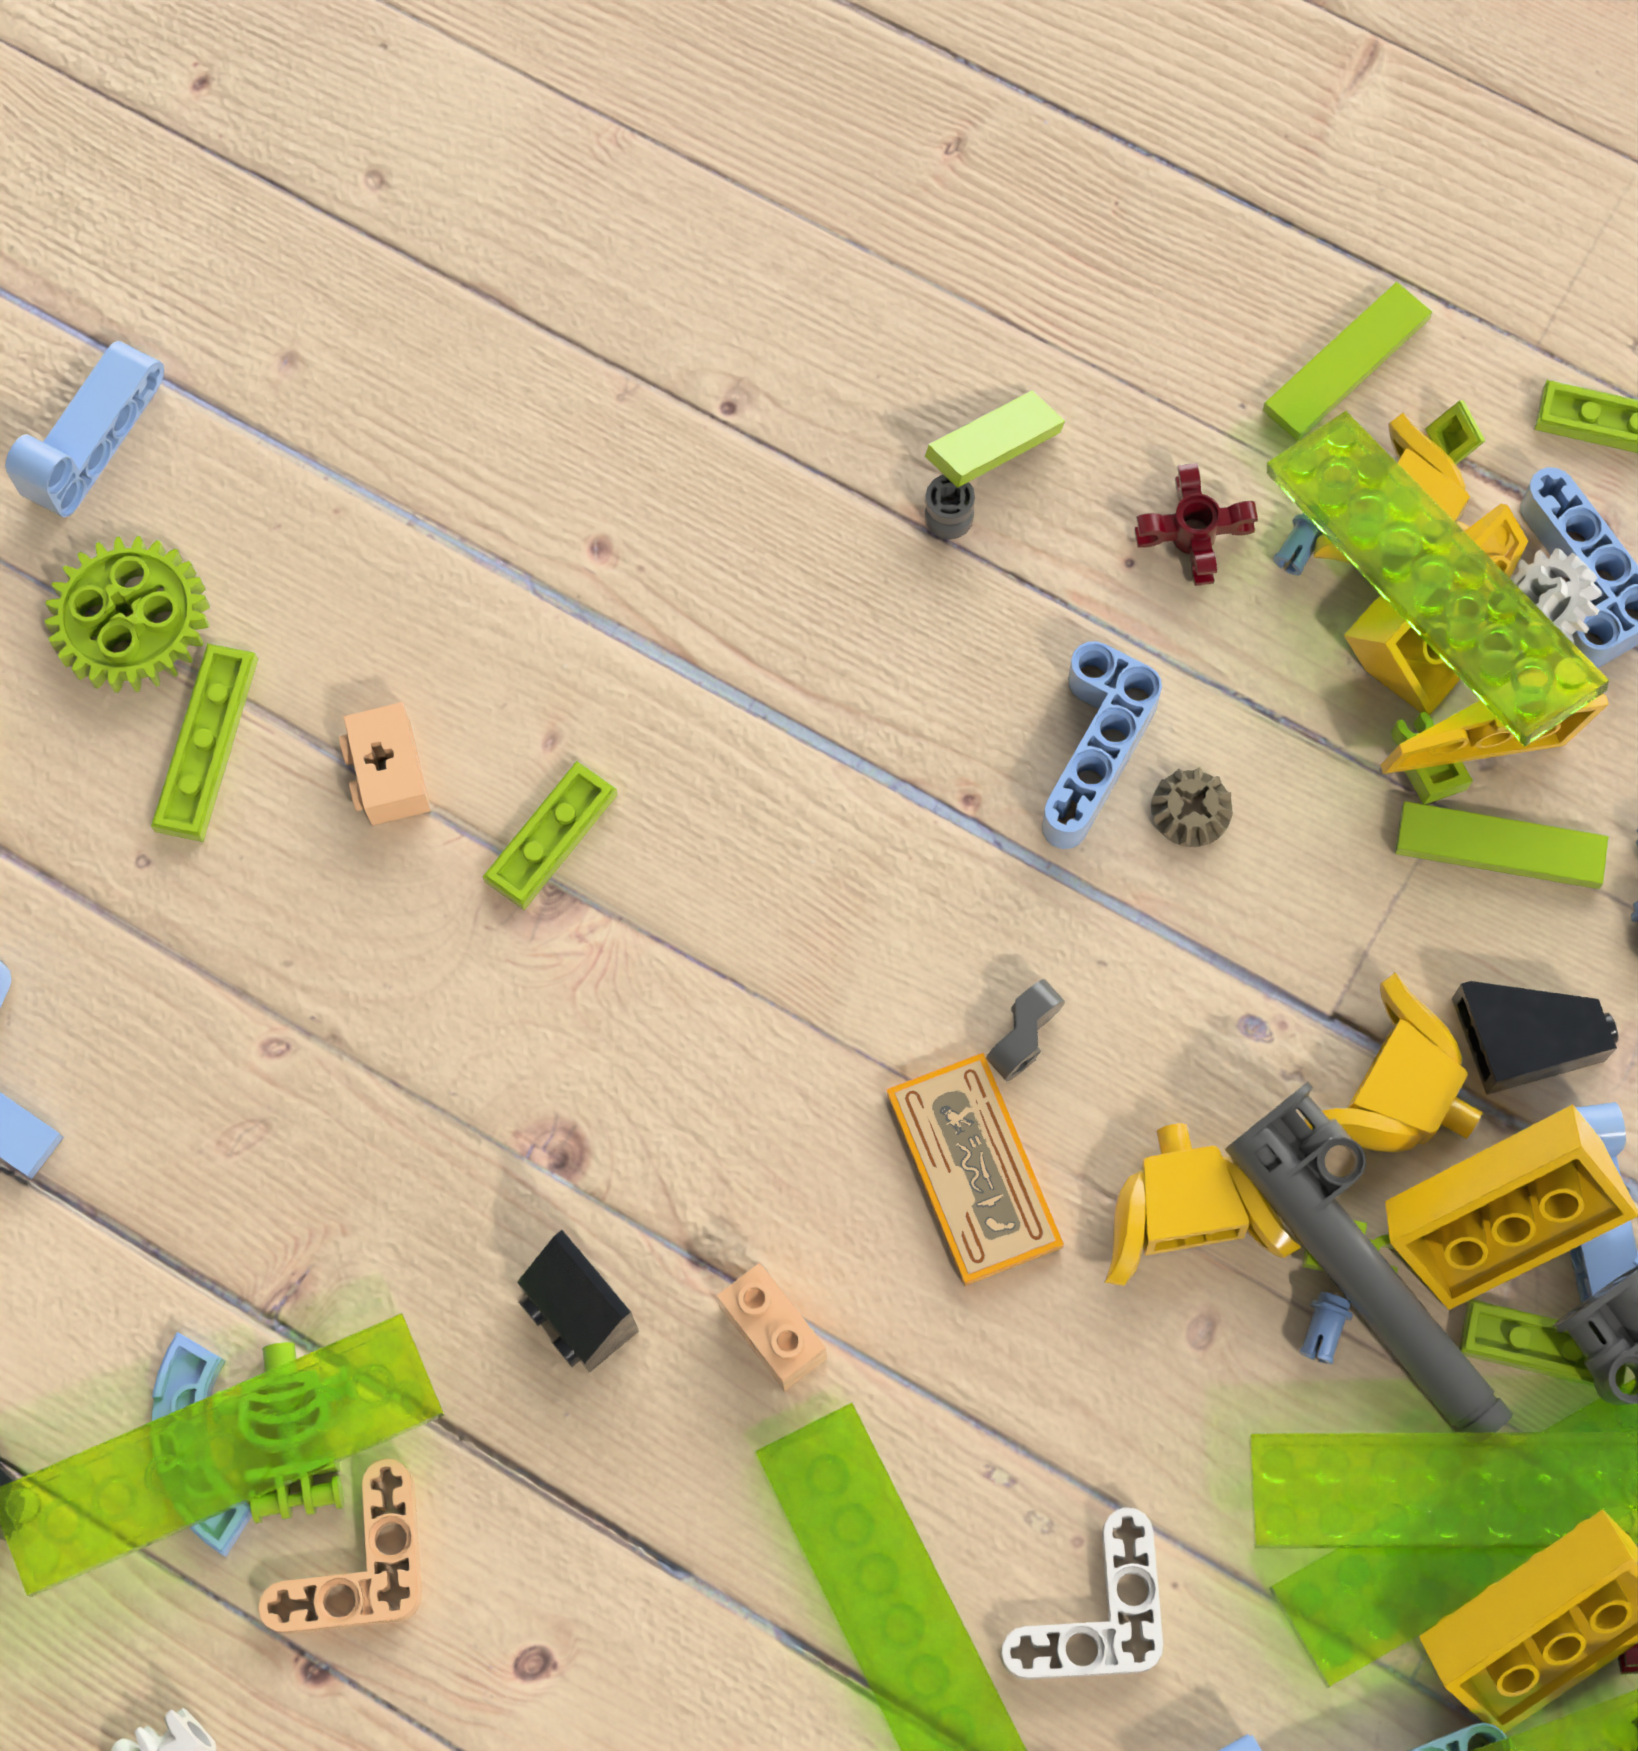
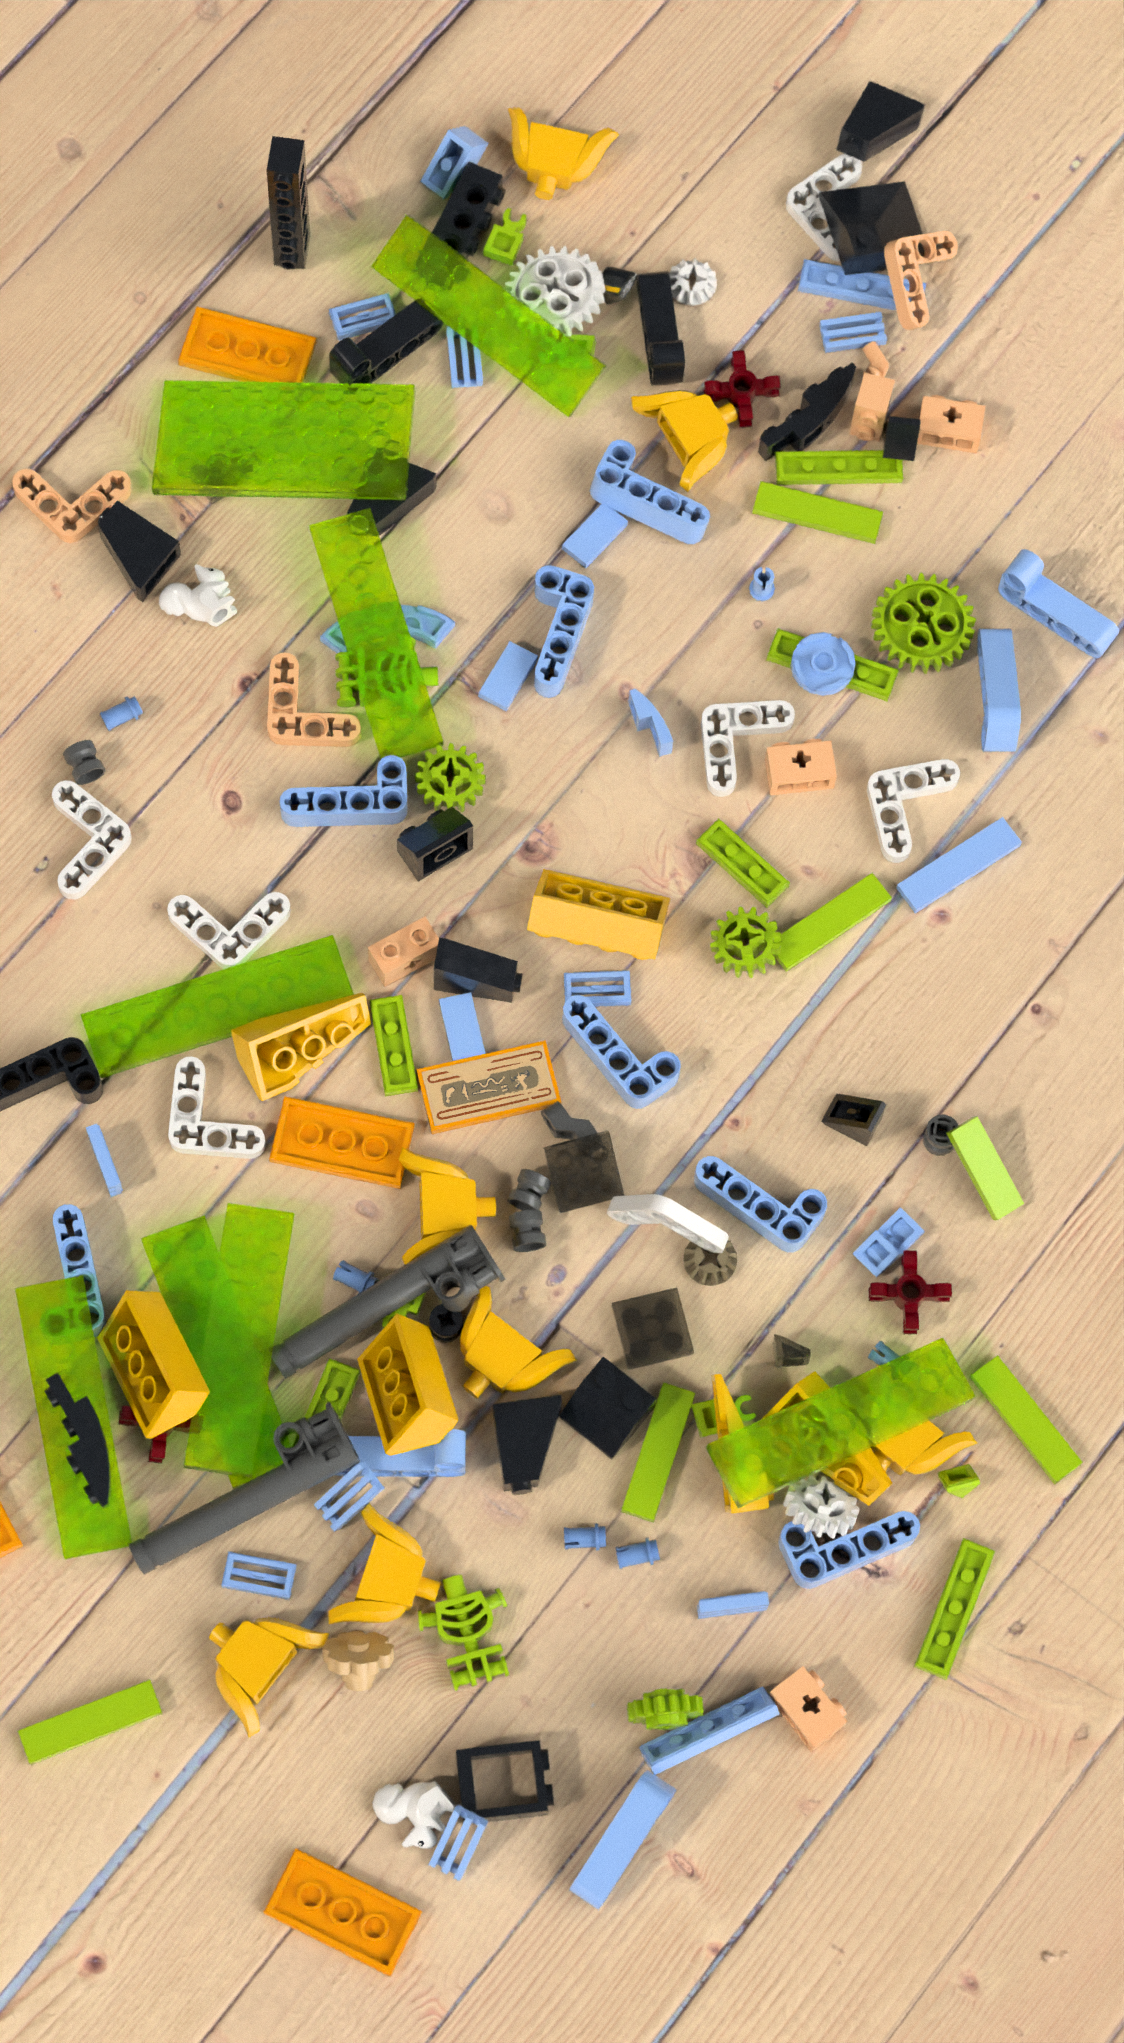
camera: 90 degrees right, 0 degrees up
(80, 855) = (762, 579): none -> light blue pin
(186, 1160) = (560, 634): none -> light blue beam
(209, 749) = (823, 664): none -> light blue tile
(232, 488) = (998, 690): none -> light blue beam
(267, 1233) = (508, 676): none -> light blue tile
(316, 1005) = (646, 717): none -> light blue slope
(324, 878) = (731, 726): none -> white beam
(408, 627) = (900, 791): none -> white beam
(437, 1298) = (436, 778): none -> lime gear
(515, 1466) = (345, 796): none -> light blue beam
(518, 529) = (958, 865): none -> light blue tile
(633, 700) = (831, 921): none -> lime tile
(666, 814) = (732, 943): none -> lime gear
(666, 1034) = (598, 914): none -> yellow slope
(780, 1638) = (226, 939): none -> white beam
(793, 1067) = (597, 1001): none -> light blue tile
(795, 1208) = (473, 970): none -> black slope
(882, 1223) = (461, 1026): none -> light blue tile
(885, 984) = (615, 1048): none -> light blue beam
(926, 1327) = (393, 1045): none -> lime tile
(941, 623) = (854, 1116): none -> black slope
(958, 1503) = (290, 1043): none -> yellow wedge
(1094, 1000) = (583, 1171): none -> clear smoke tile
(1102, 1387) = (341, 1142): none -> light orange tile
(1120, 566) = (888, 1242): none -> light blue slope
(1138, 1079) = (529, 1190): none -> dark grey wheel
(1159, 867) = (662, 1210): none -> white beam
(1202, 1074) = (527, 1230): none -> dark grey wheel
(1319, 873) = (652, 1328): none -> clear smoke plate
(1322, 678) = (789, 1353): none -> clear smoke slope
(1368, 1190) = (443, 1329): none -> black wheel
(1455, 919) = (608, 1408): none -> black slope

